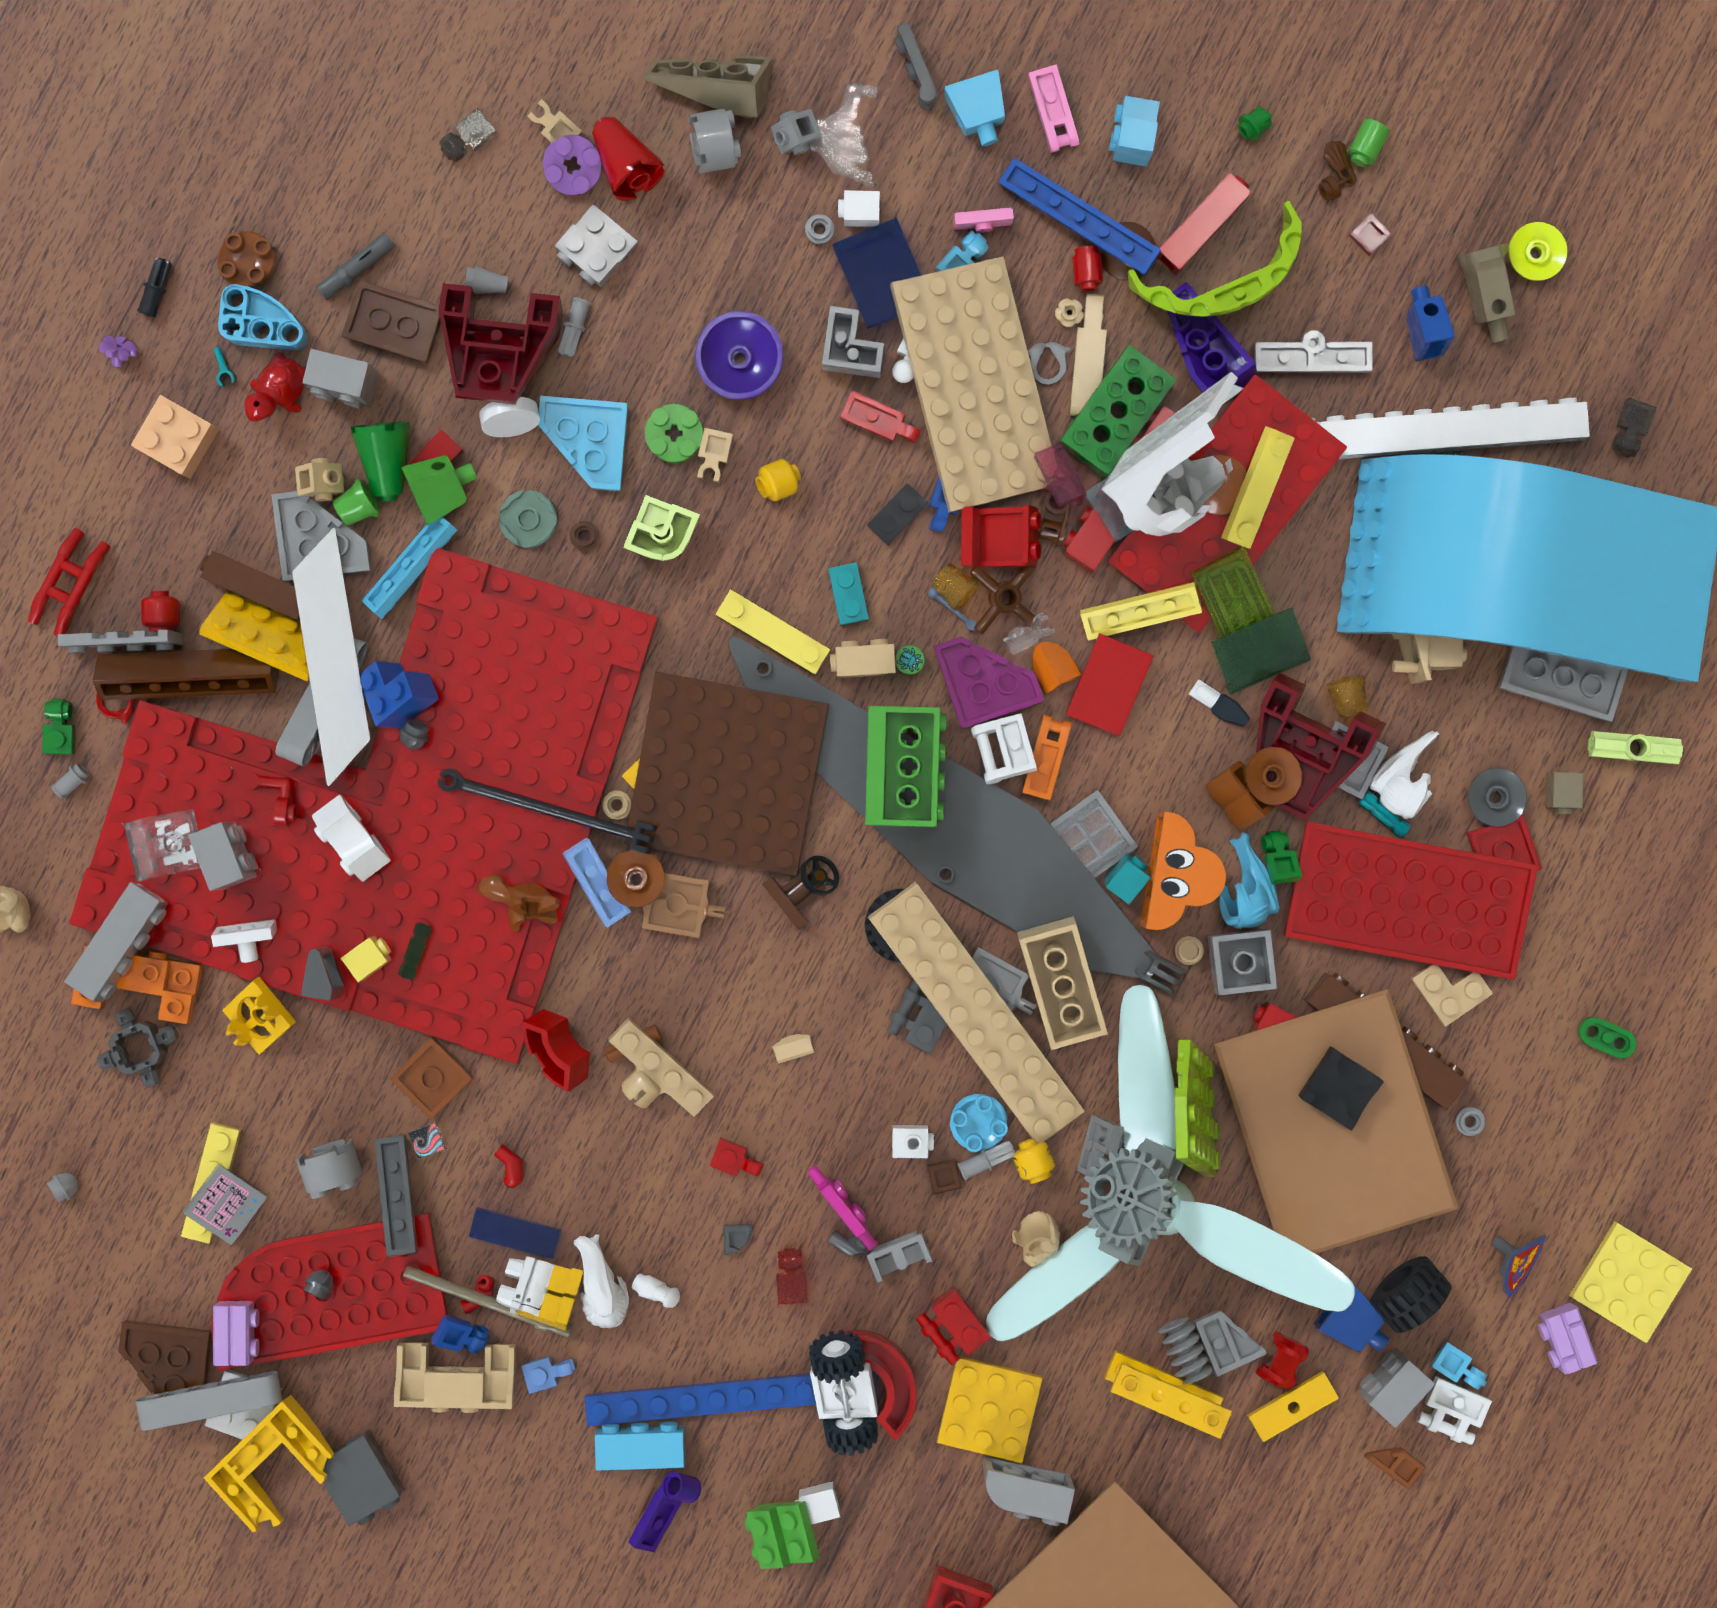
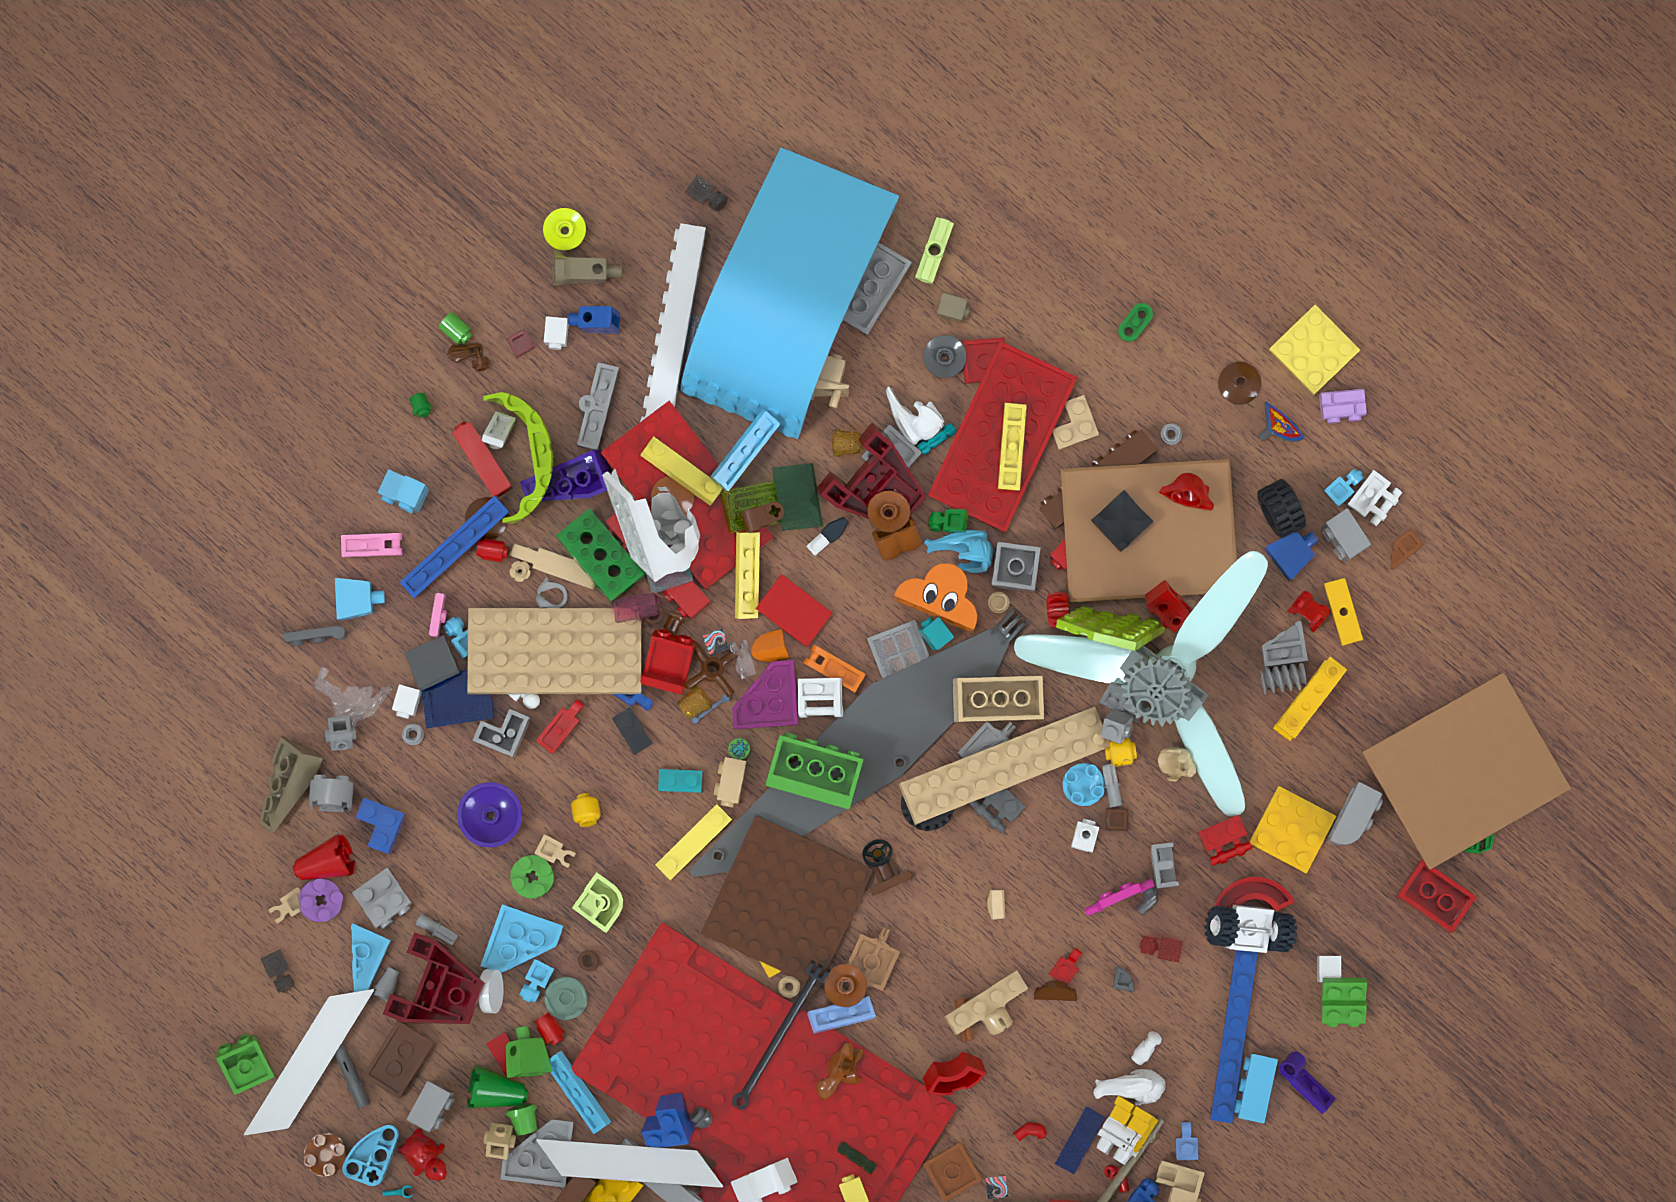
camera: 70 degrees left, 5 degrees down
(335, 122) = (244, 1063): none -> bright green plate
(359, 206) = (308, 1062): none -> white sticker
(481, 508) = (549, 1029): none -> red brick
(519, 246) = (368, 954): none -> medium azure wing
(548, 474) = (538, 975): none -> medium azure plate
(692, 225) = (386, 822): none -> blue brick
(699, 1153) = (1055, 991): none -> reddish brown tile
(919, 227) = (432, 663): none -> dark grey tile
(1042, 593) = (715, 642): none -> tile
(1066, 1148) = (1117, 726): none -> light grey brick
(1201, 1030) = (1057, 606): none -> red gear
(1222, 606) = (759, 516): none -> reddish brown piece
(1241, 1177) = (1168, 606): none -> red brick
(1248, 233) = (498, 430): none -> white tile
(1307, 564) = (745, 450): none -> medium azure plate
(1397, 276) = (556, 332): none -> white brick
(1401, 917) = (1012, 446): none -> light yellow plate
(1401, 1167) = (1188, 491): none -> red hat
(1546, 1193) = (1231, 390): none -> reddish brown dish

